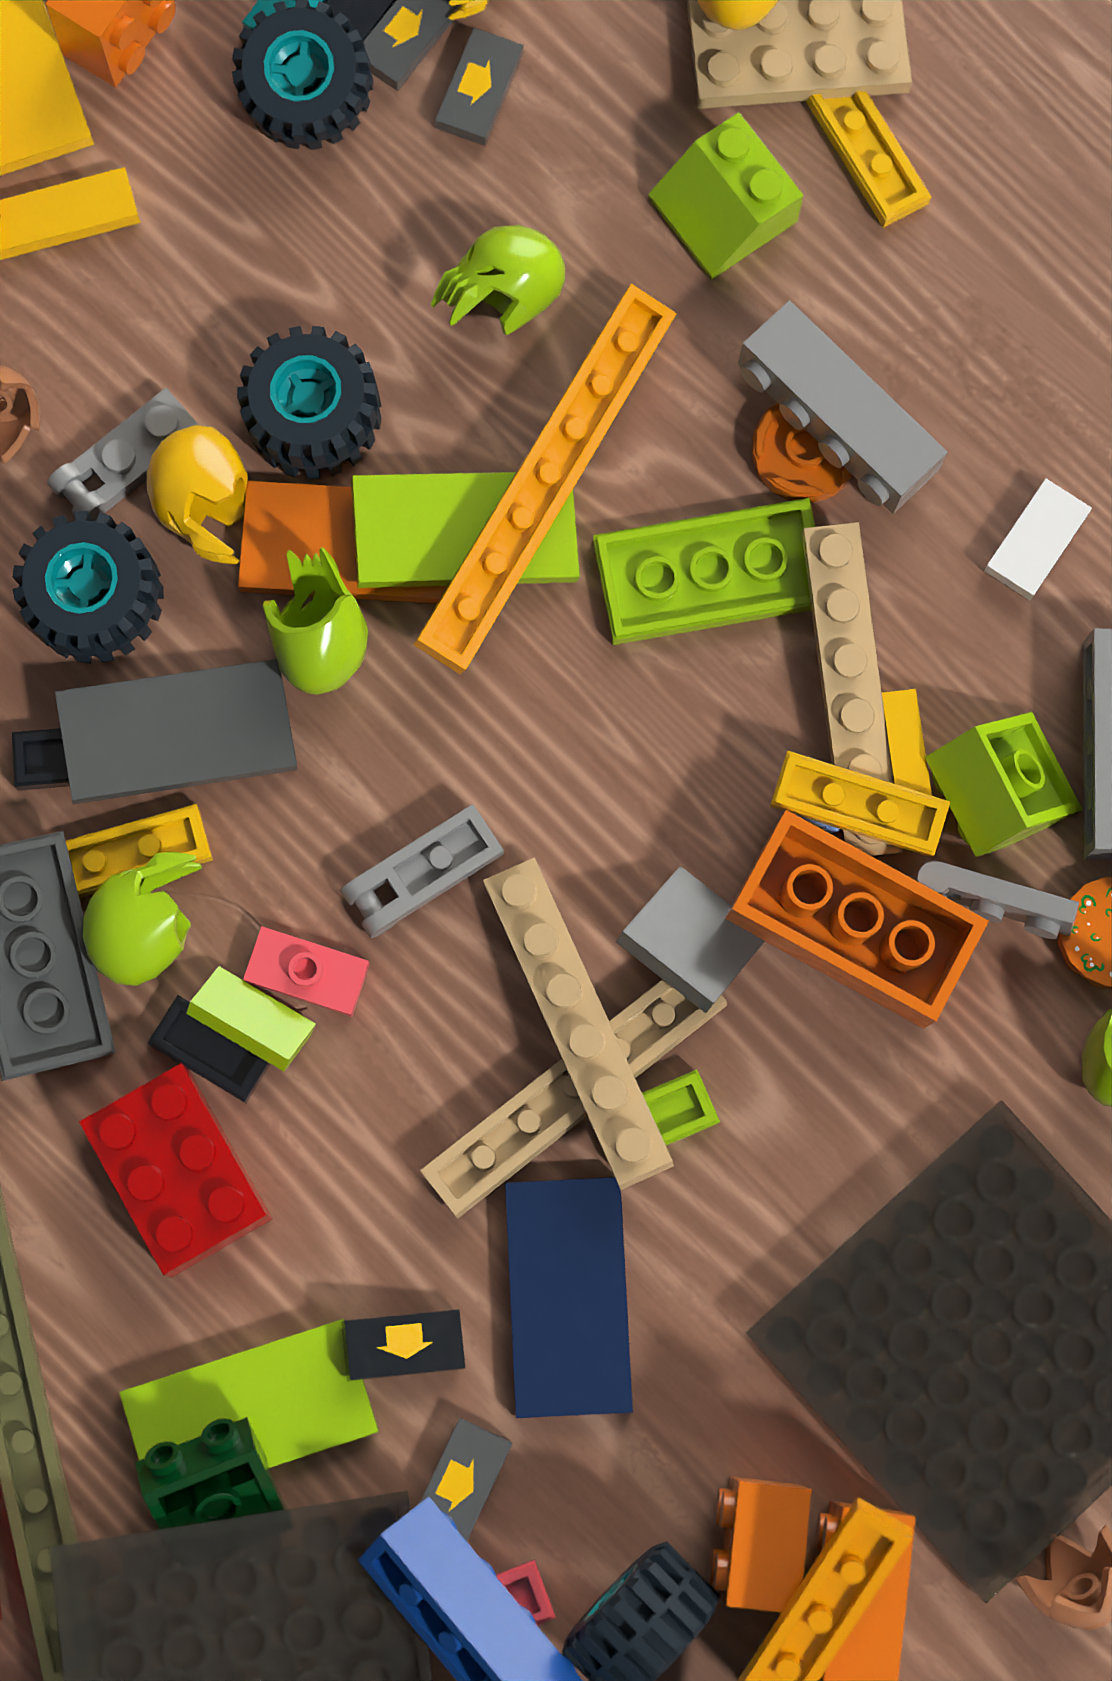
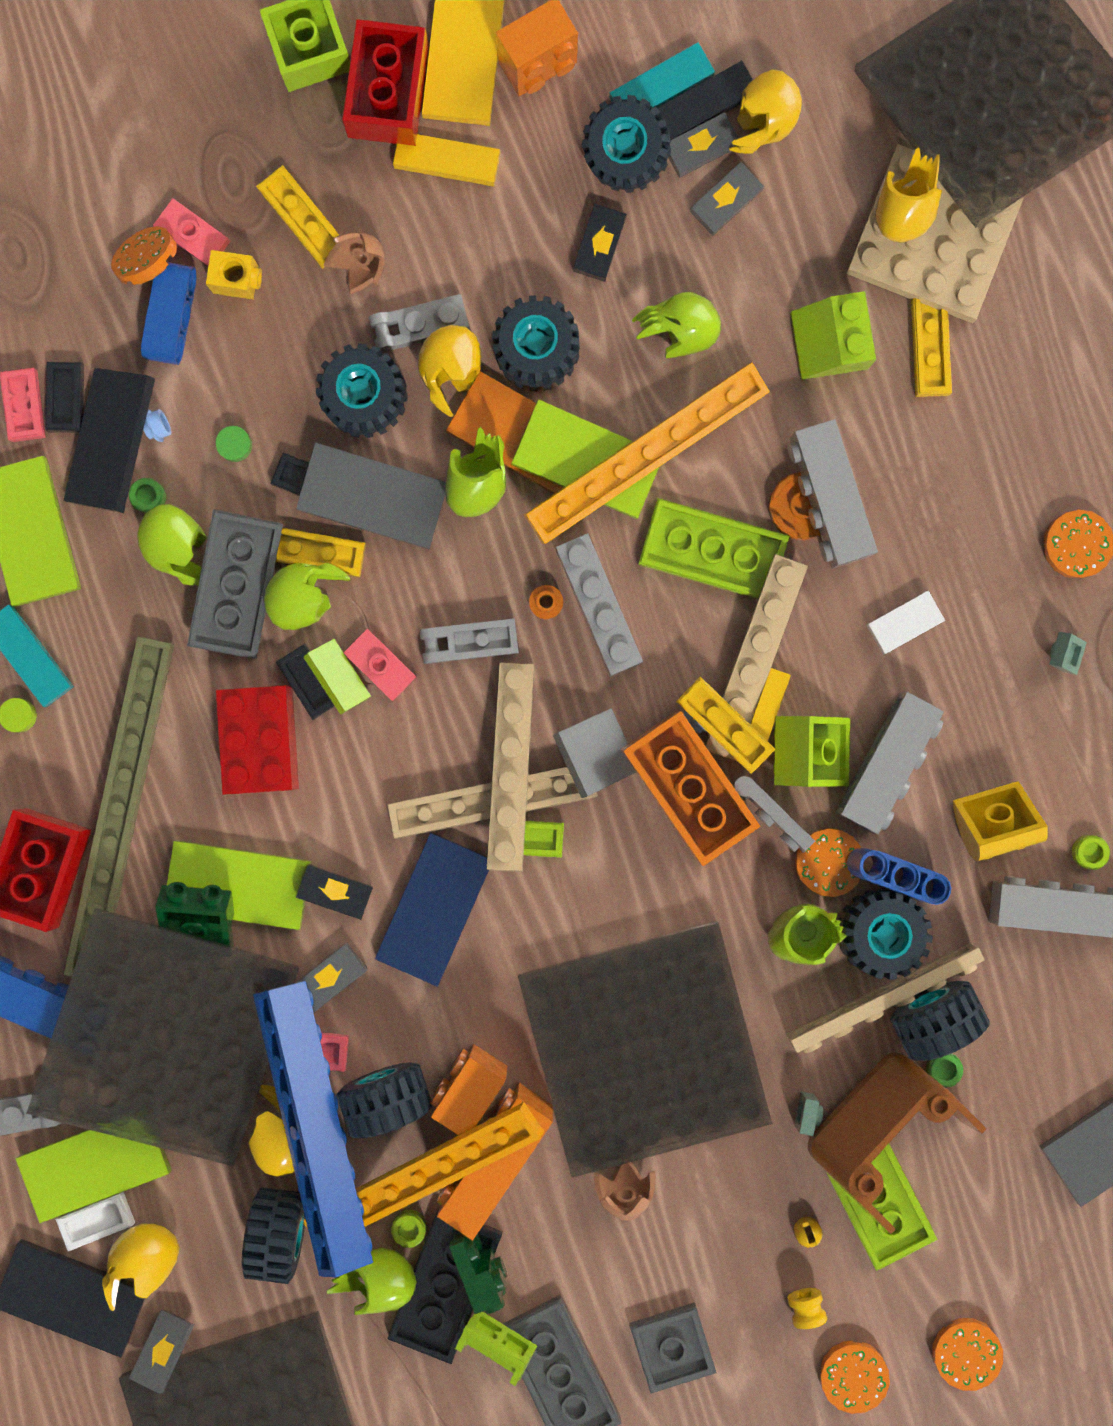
camera: 30 degrees right, 10 degrees up
(330, 227) = (599, 242): none -> black tile
(511, 776) = (538, 610): none -> orange plate
(587, 725) = (598, 605): none -> light grey brick

